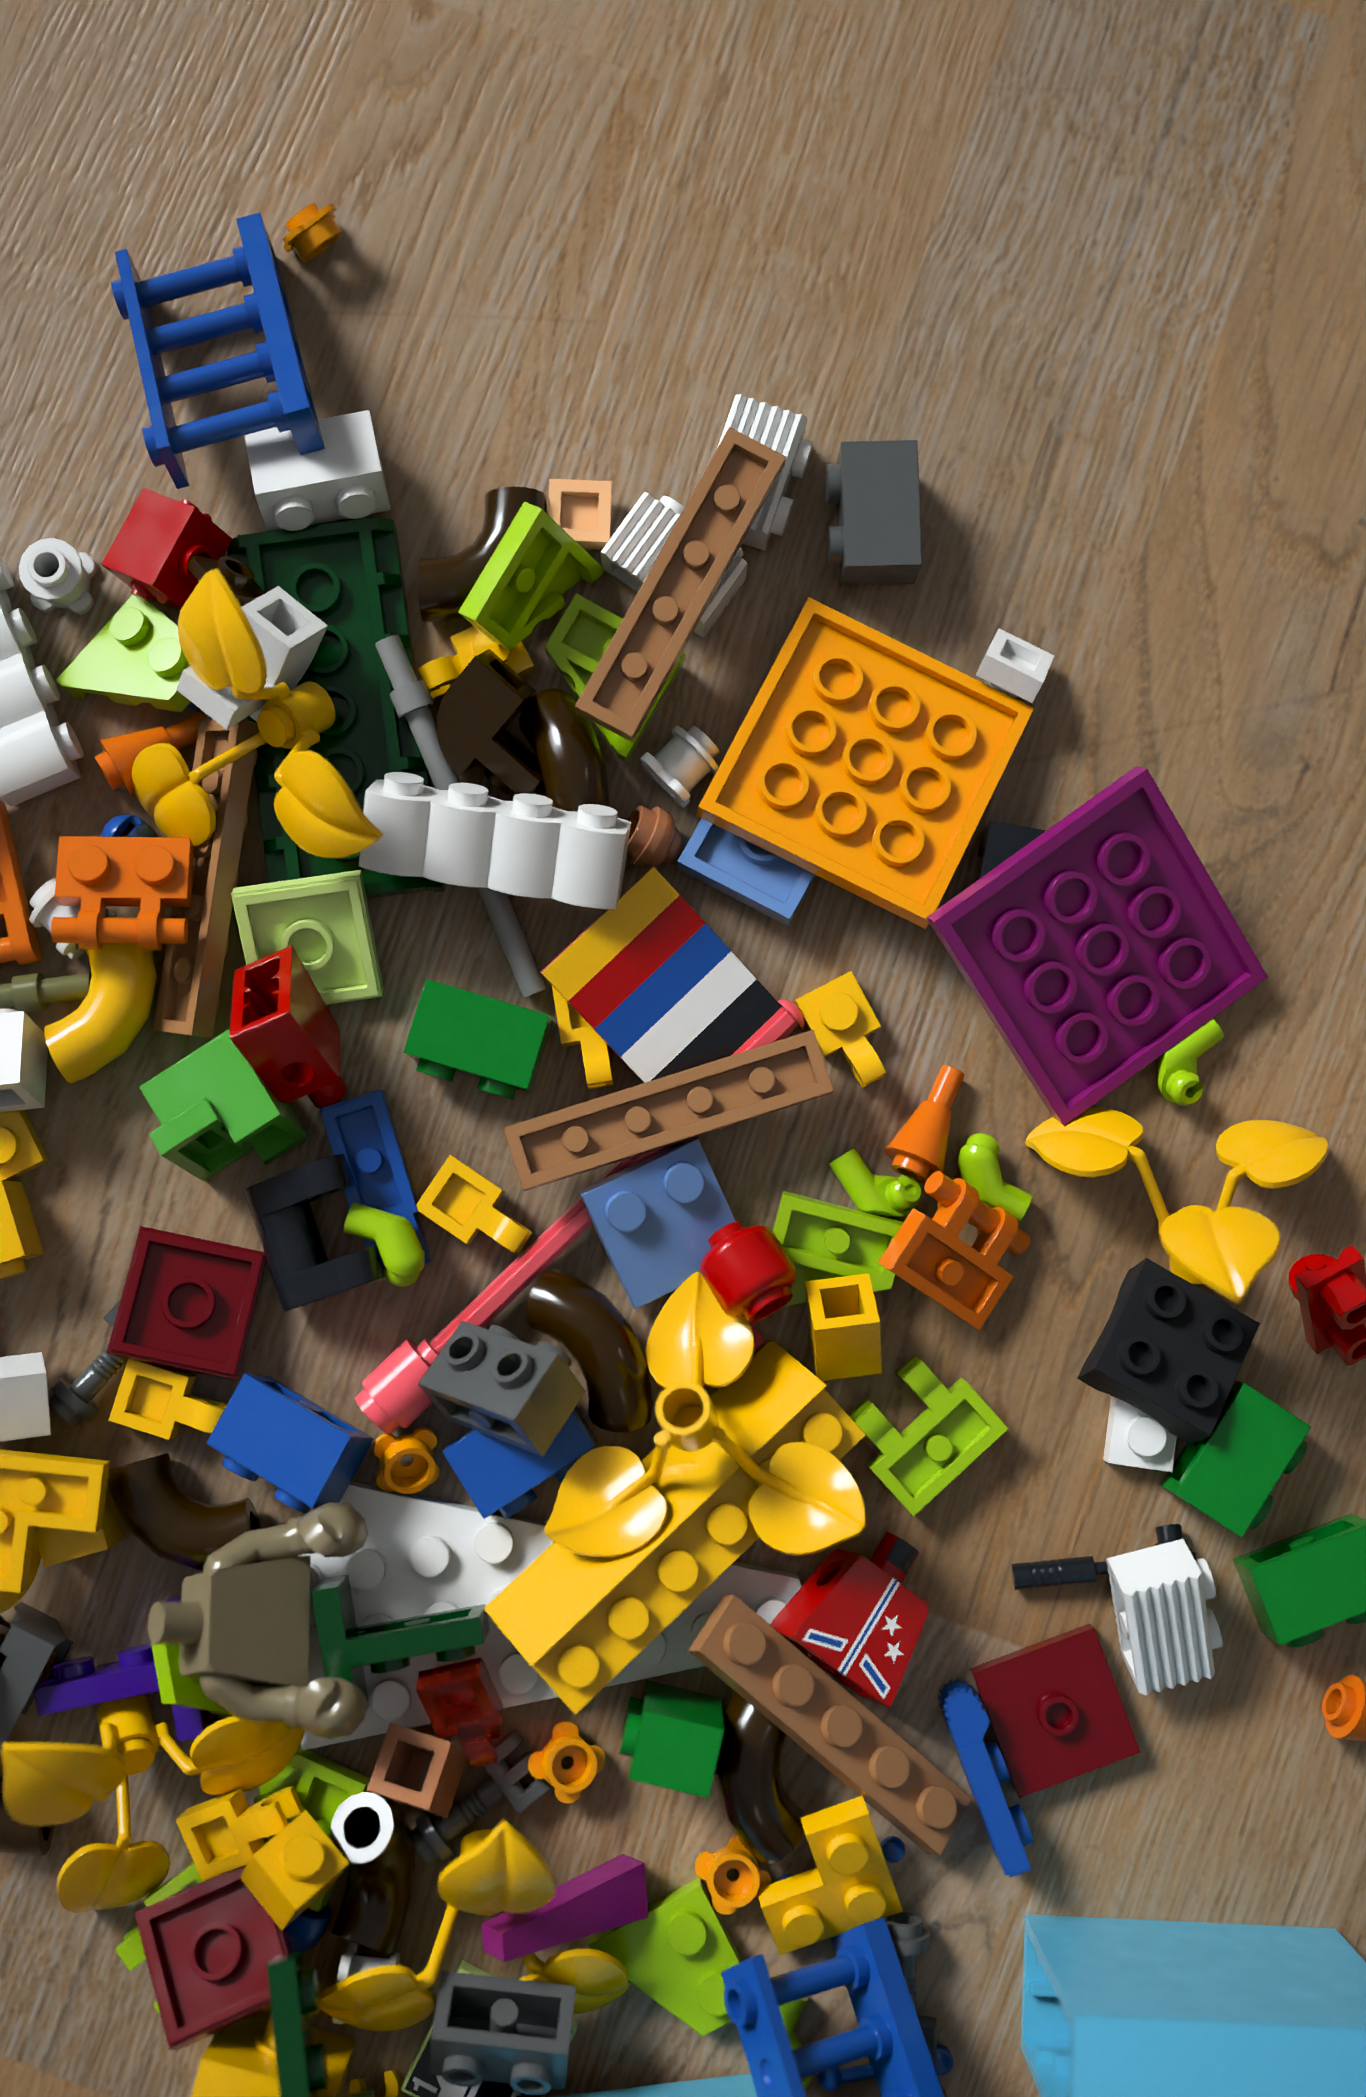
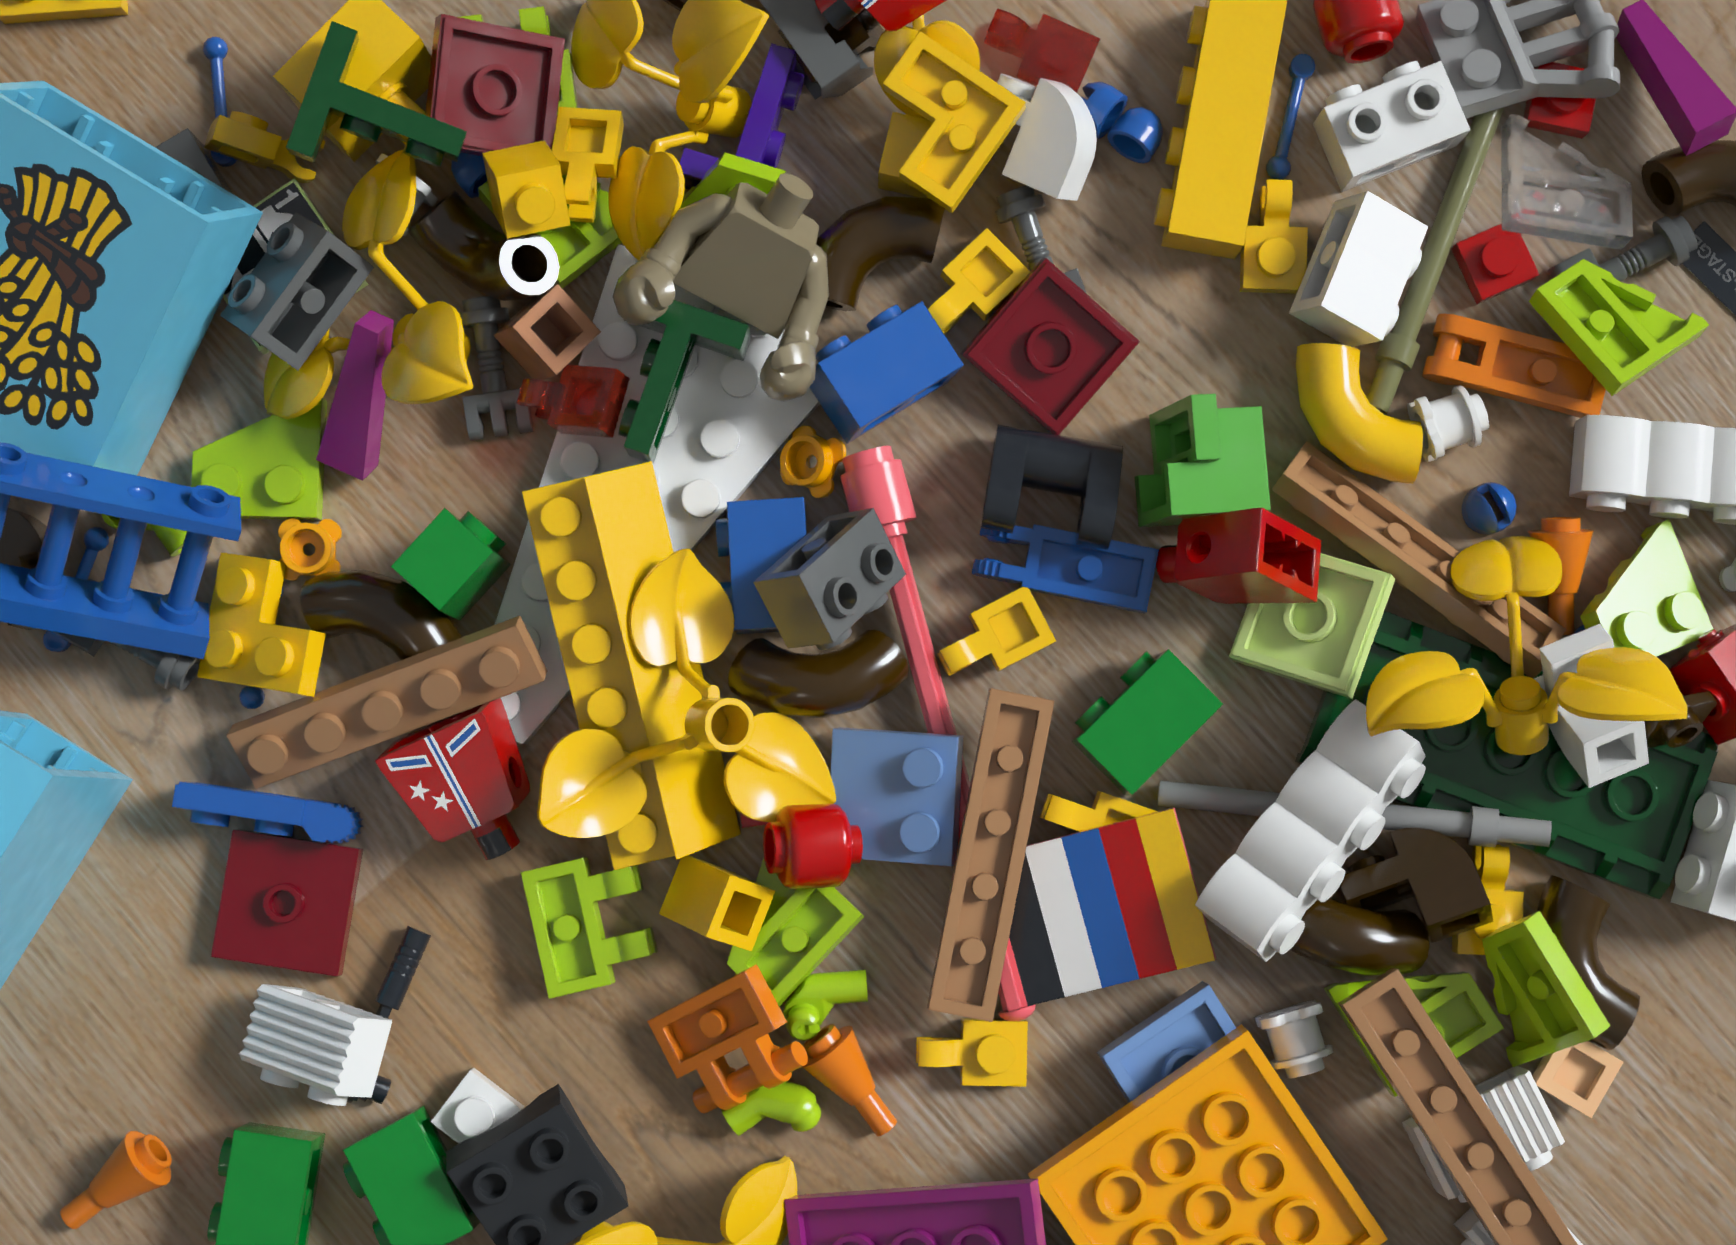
camera: 120 degrees right, 0 degrees up
(127, 874) = (1459, 489): orange plate -> none
(394, 1238) = (1009, 554): lime arm -> none
(570, 1781) = (472, 476): light orange plate -> none
(653, 838) = (1242, 974): nougat plate -> none

